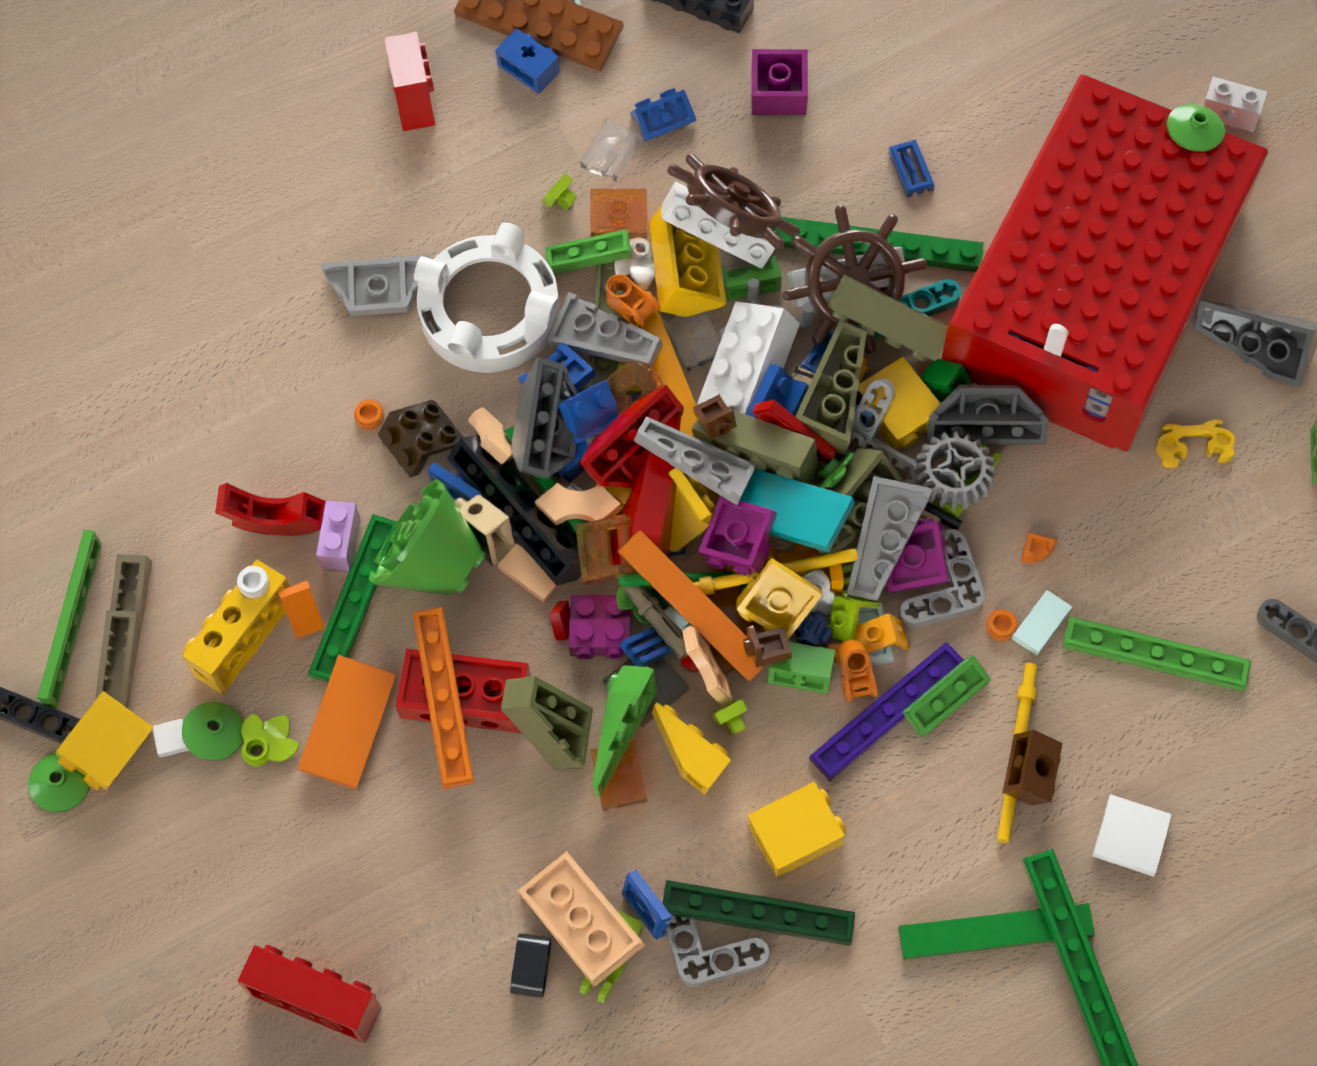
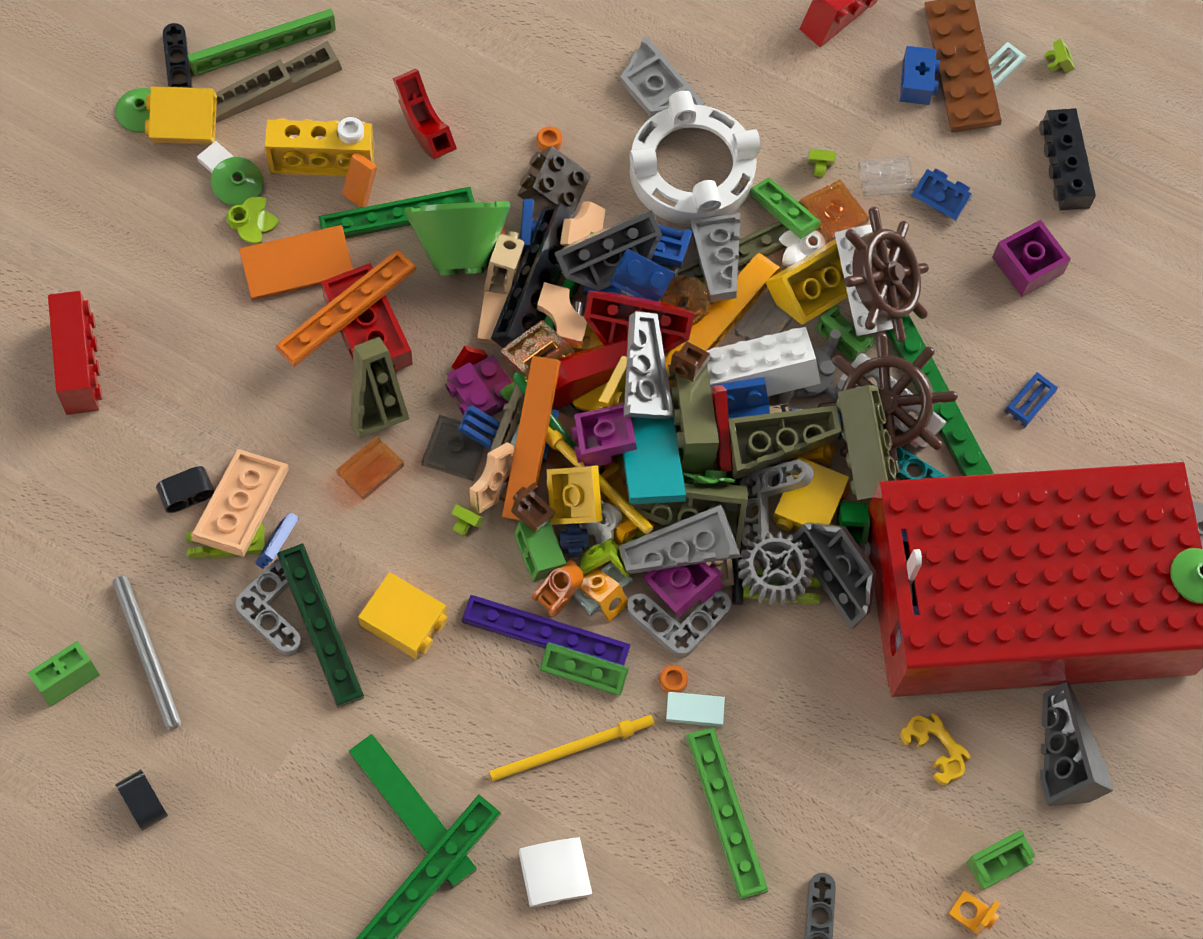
camera: 50 degrees right, 0 degrees up
(338, 536) = (435, 172): lavender brick -> none
(626, 705) = (411, 440): bright green wedge -> none
(634, 304) = (755, 257): orange piece -> none
(692, 754) = (414, 510): yellow slope -> none
(1032, 767) = (544, 762): reddish brown brick -> none
(1037, 548) = (758, 672): orange tile -> none

